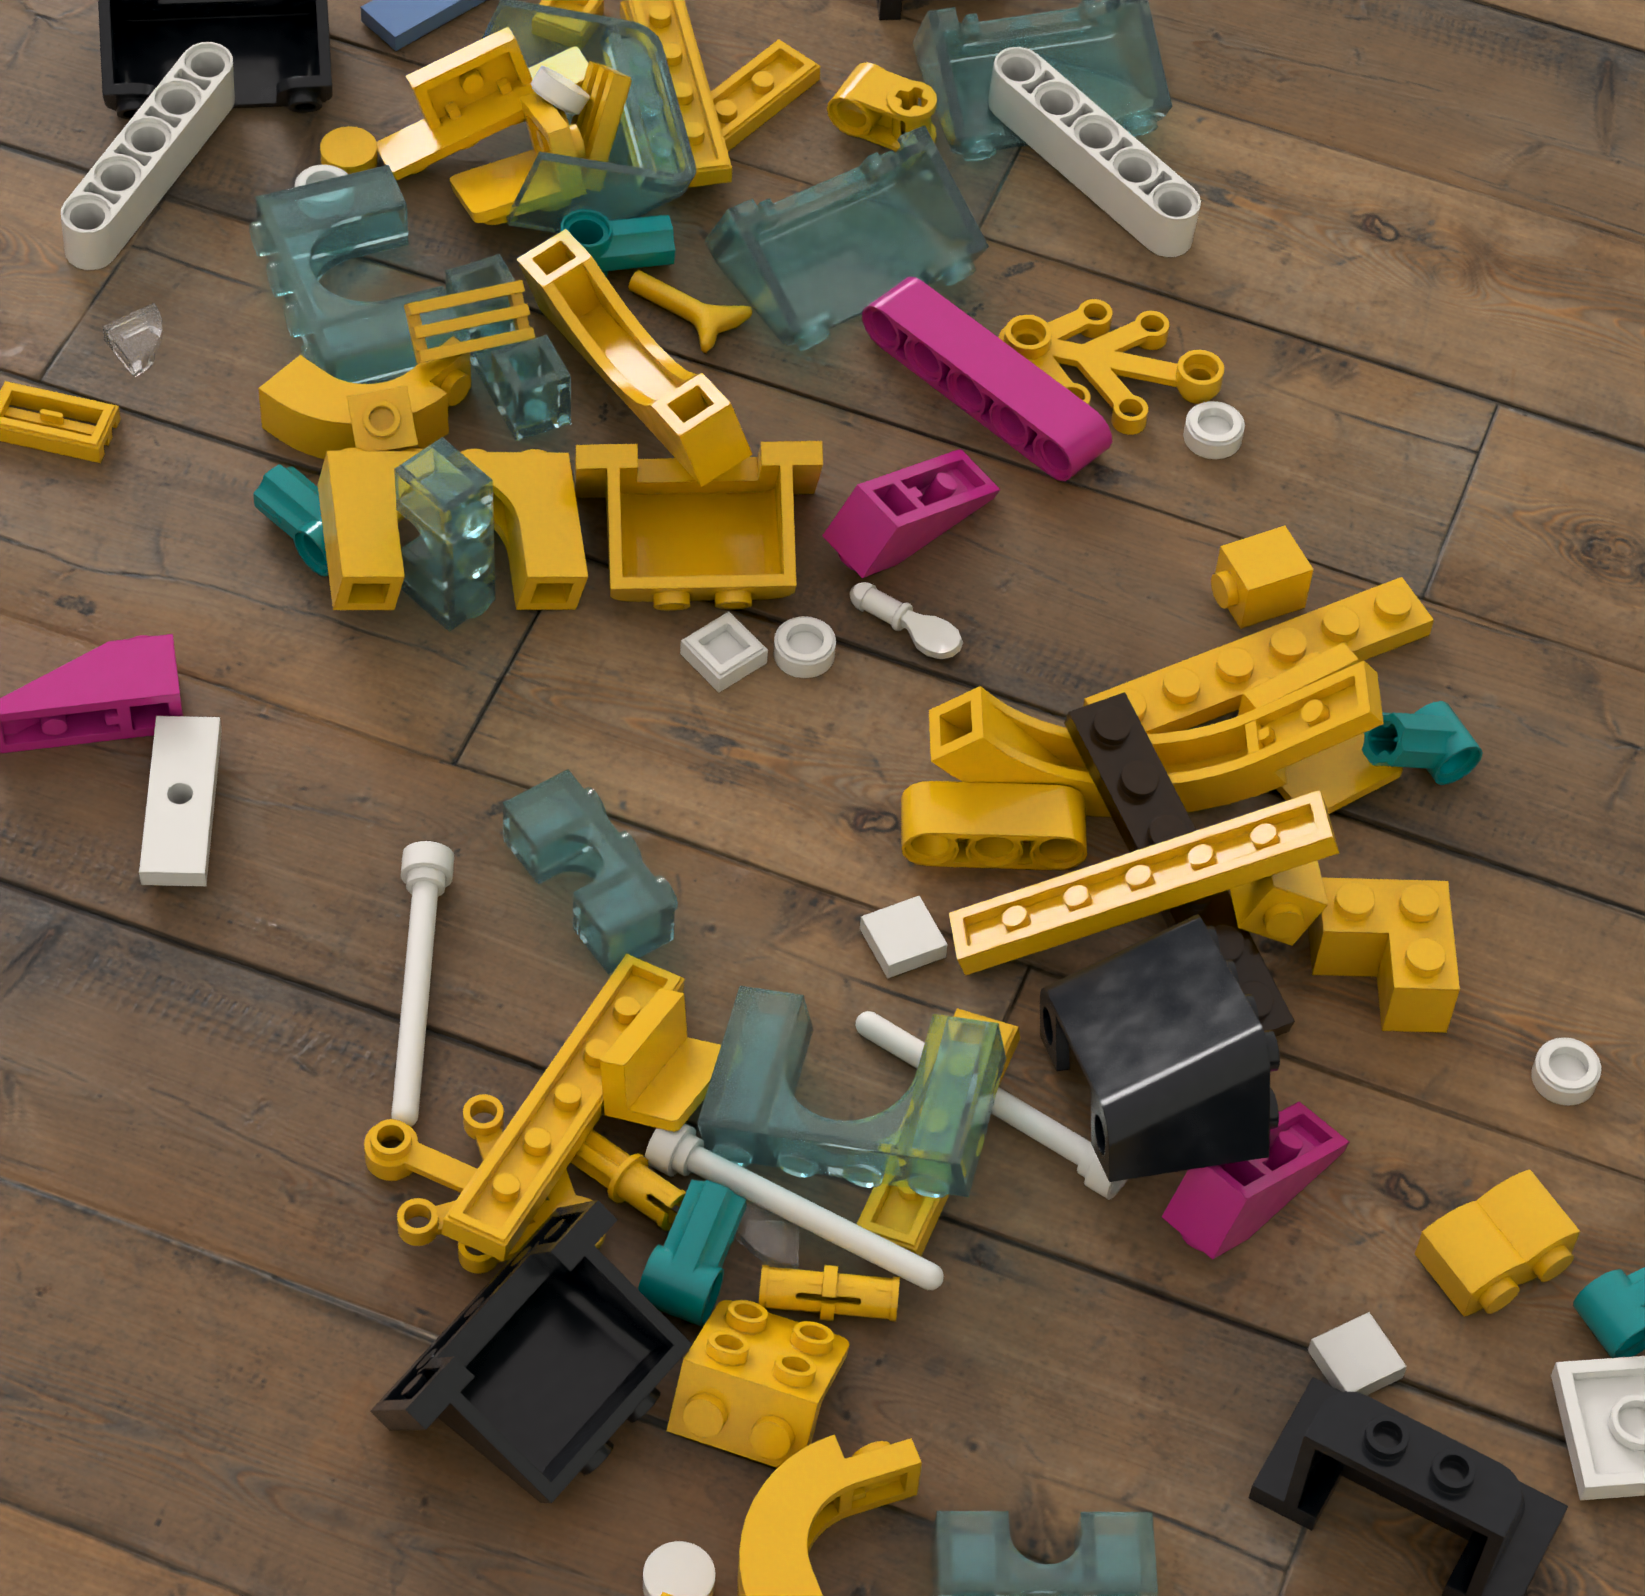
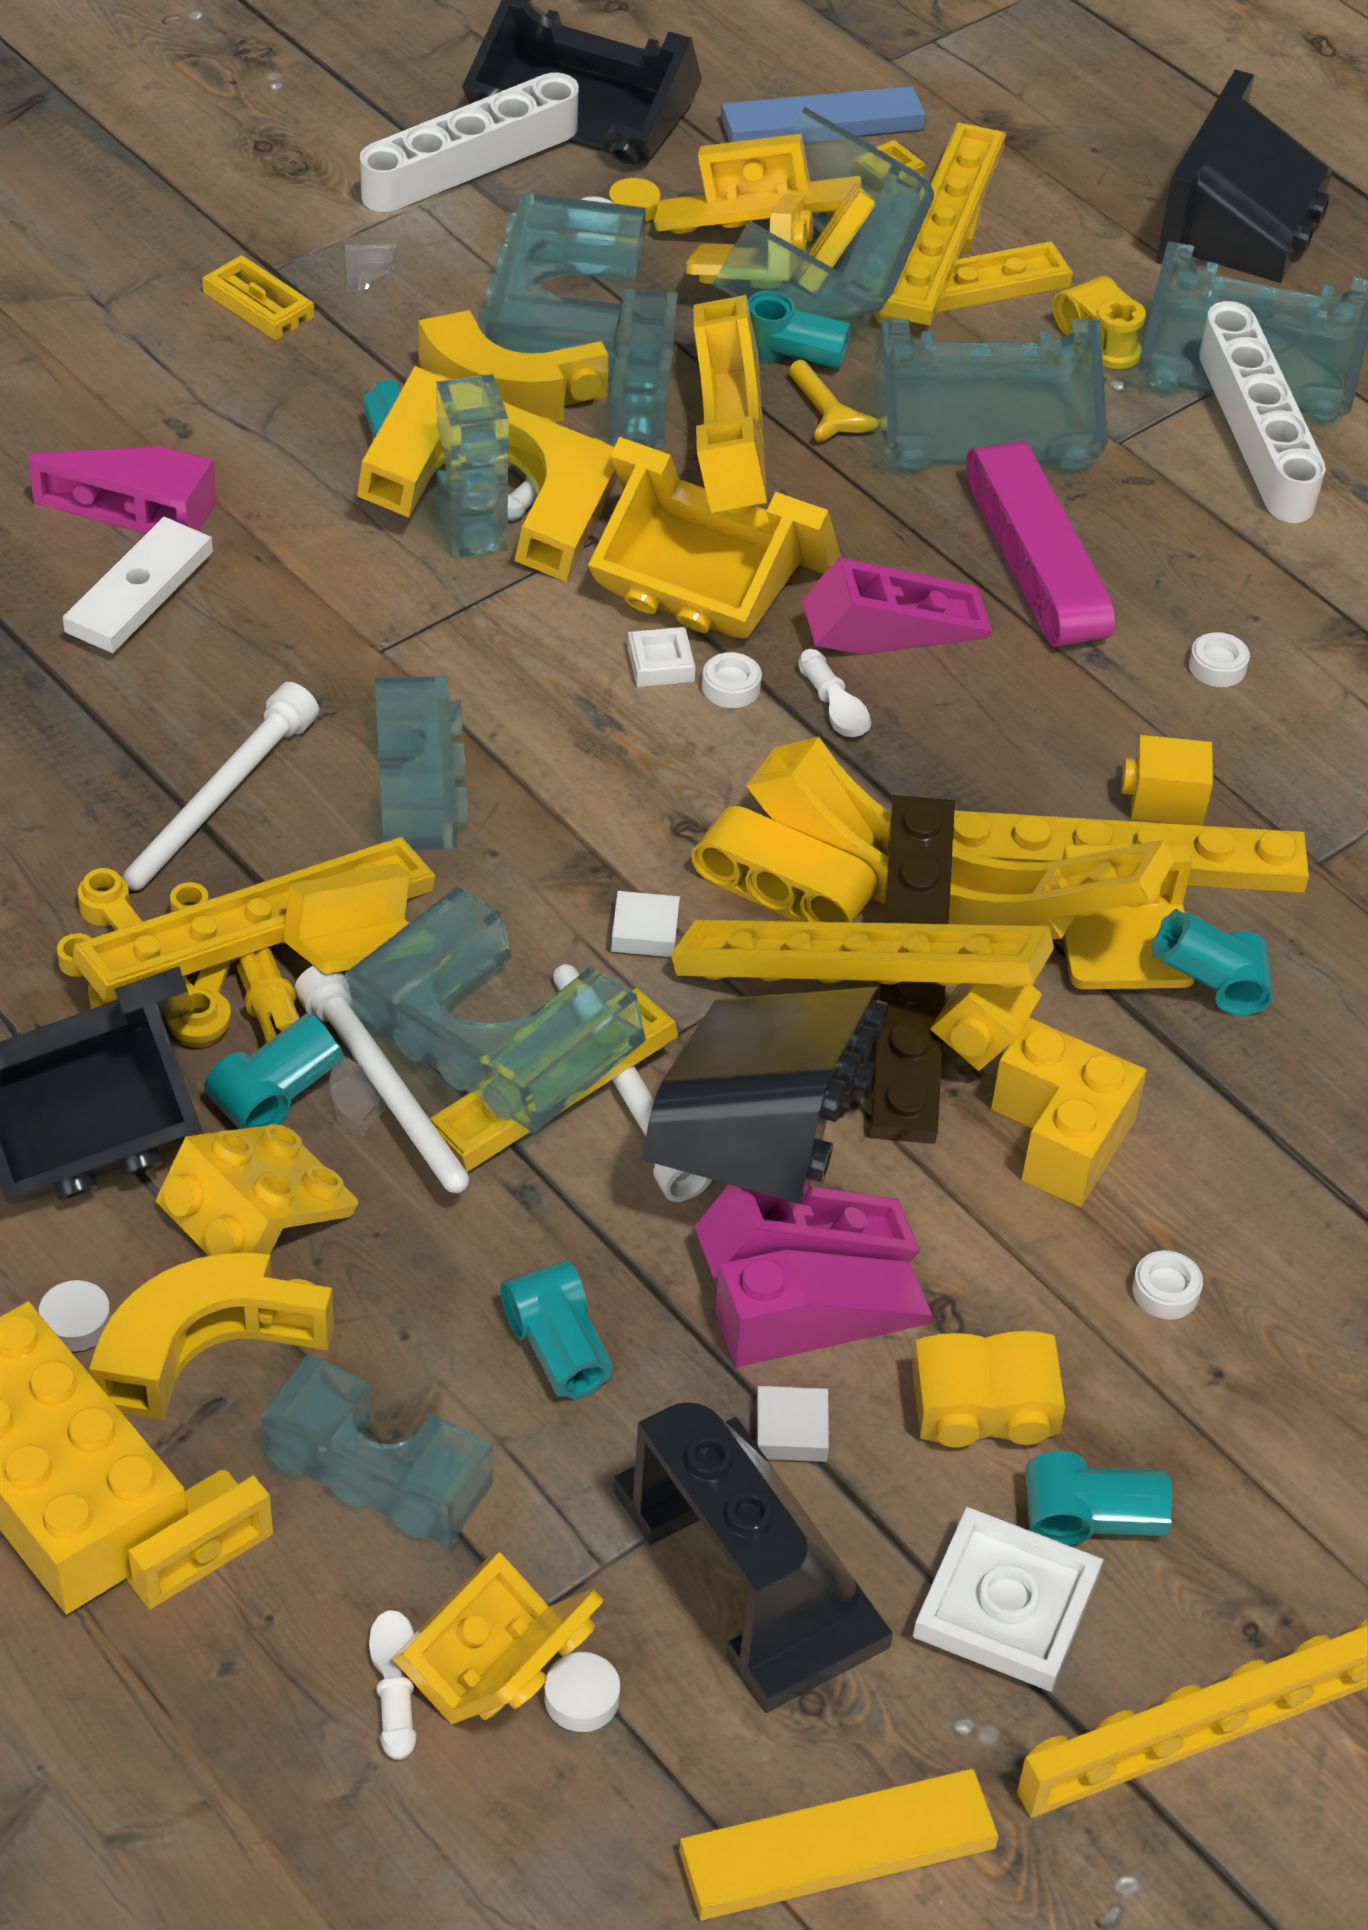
camera: 30 degrees right, 5 degrees down
(382, 420) = (487, 356): yellow brick -> none
(517, 311) = (614, 307): yellow tile -> none
(559, 91) = (814, 196): white tile -> none
(829, 1292) = (368, 1158): yellow pin -> none
(1095, 1361) = (553, 1315): none -> teal piece
(1102, 359) = (1105, 536): yellow plant -> none
(1302, 1239) = (813, 1301): none -> dark pink slope

